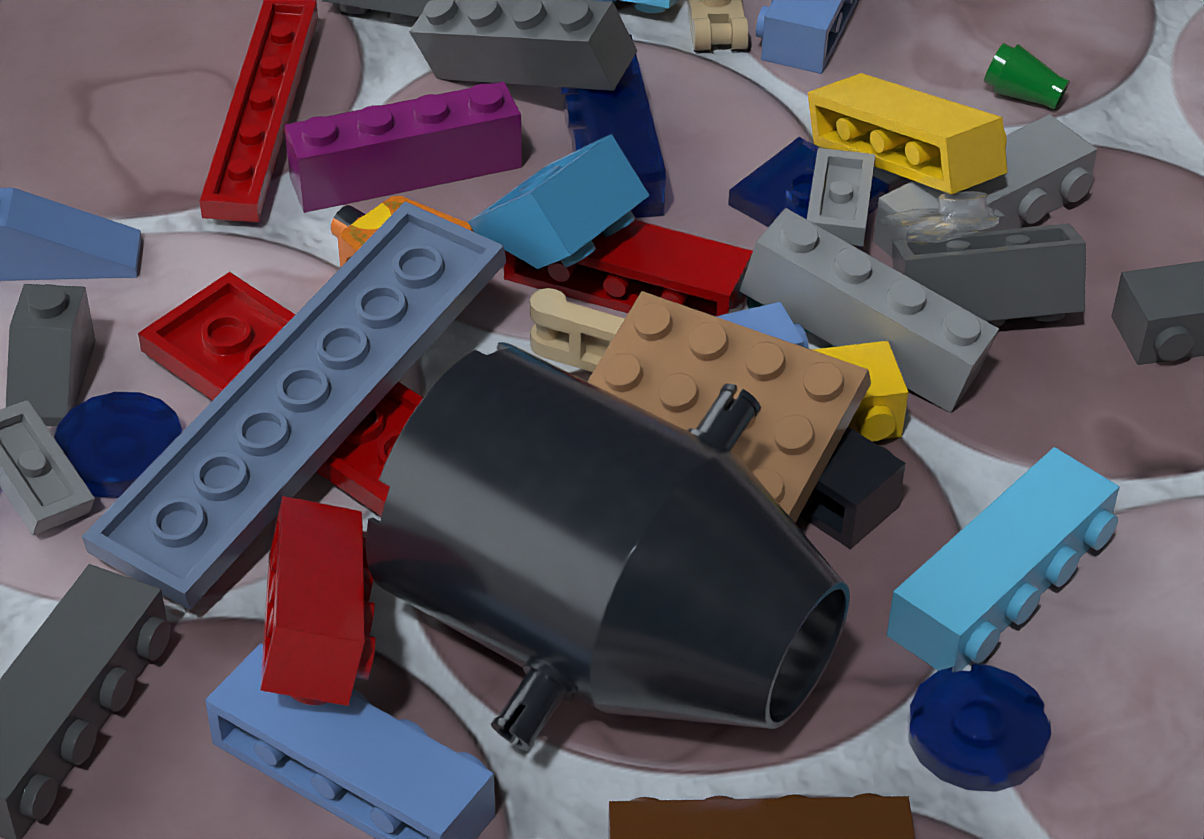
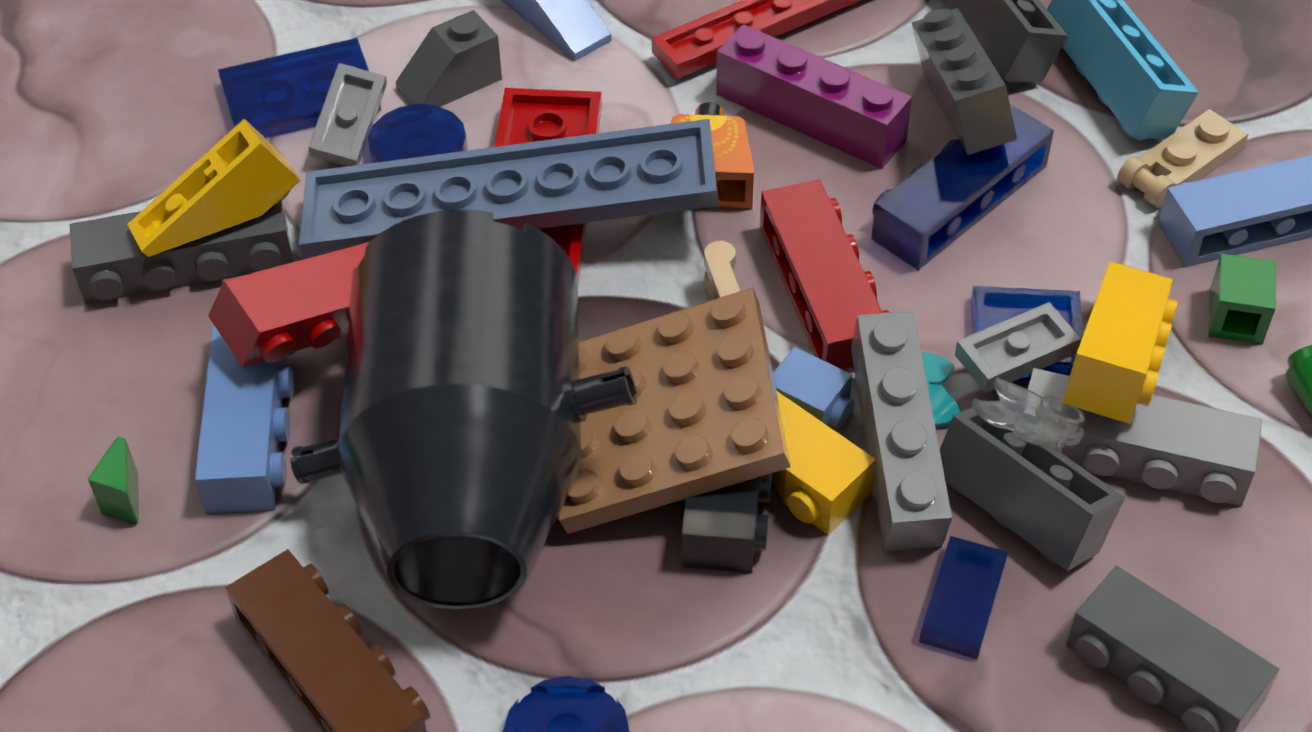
camera: 55 degrees right, 5 degrees up
(67, 605) = (222, 189): none -> yellow slope
(565, 206) = (800, 201): dark azure slope -> none
(904, 54) = (1242, 298): none -> green brick
(1003, 562) = (734, 661): medium azure brick -> none
(1046, 391) = (963, 597): none -> clear blue tile

